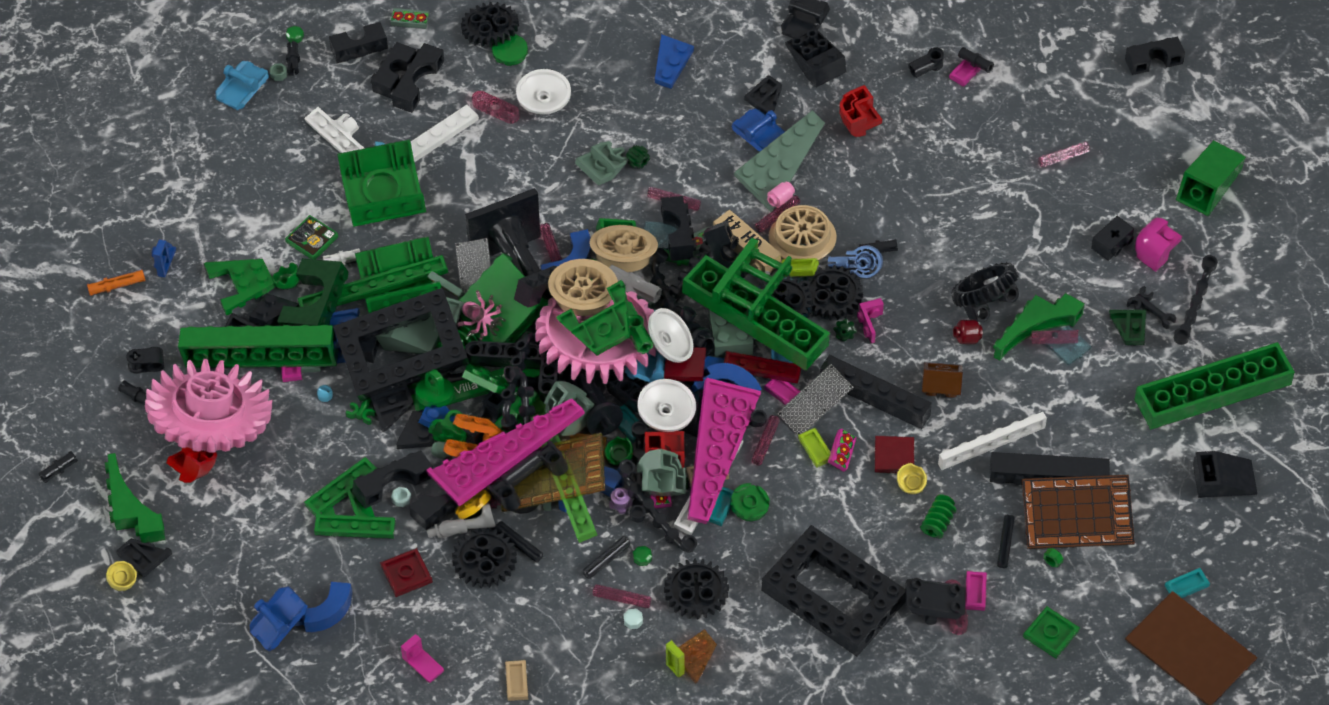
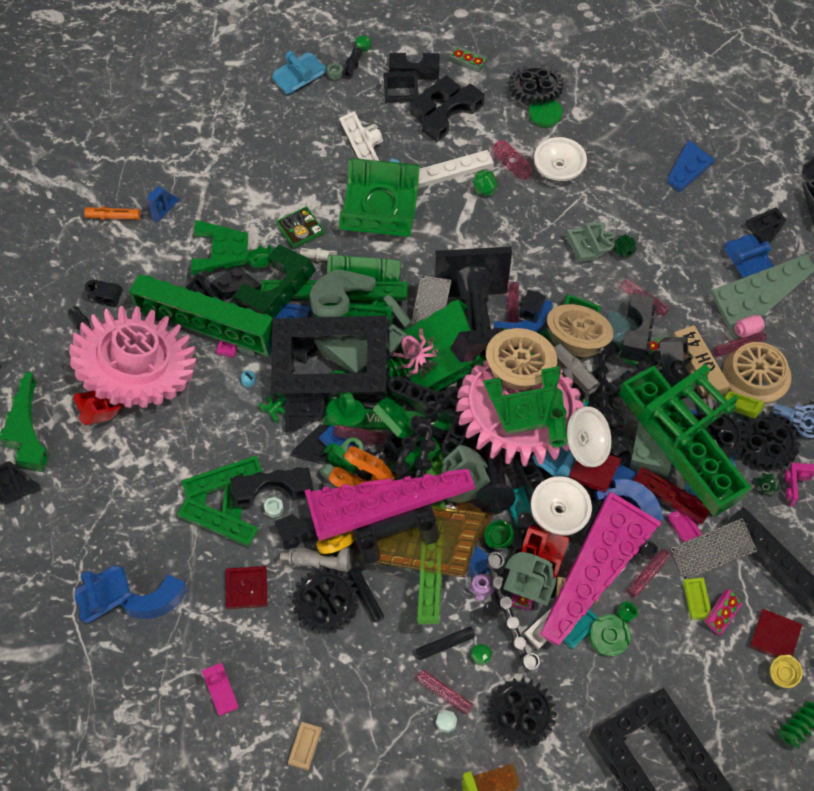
camera: 20 degrees right, 5 degrees up
(350, 61) = (400, 80): none -> black tile
(376, 281) = (332, 289): none -> sand green animal
(460, 405) = (361, 434): none -> clear pink axle
(477, 137) = (484, 182): none -> green head
(571, 239) = (532, 306): none -> black brick
(758, 477) = (627, 611): none -> green tile

